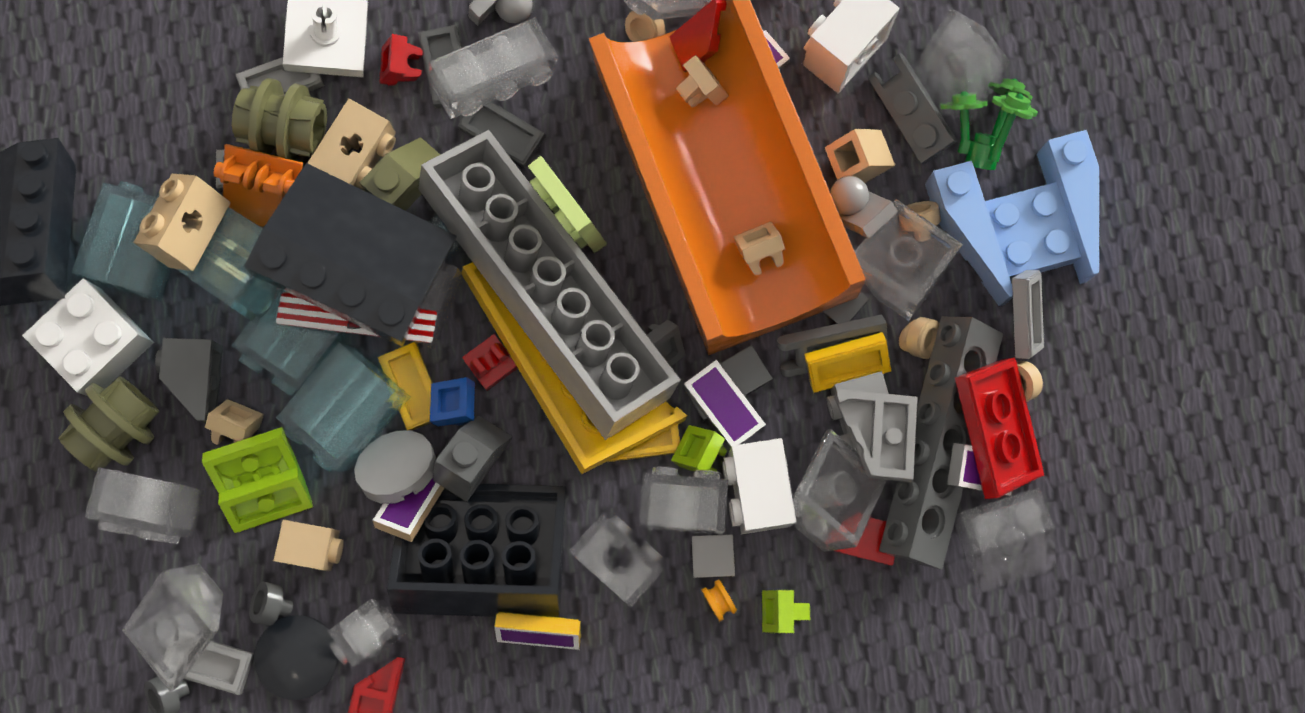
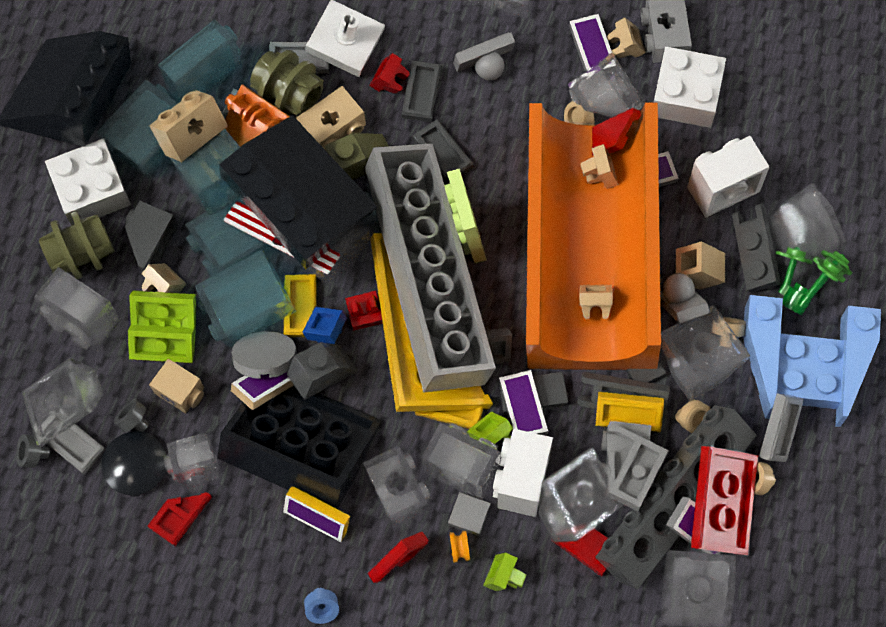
camera: 25 degrees right, 10 degrees down
(164, 134) = (202, 61): none -> clear light blue brick
(492, 68) = (454, 103): clear brick -> none
(654, 642) = (398, 556): none -> red tile

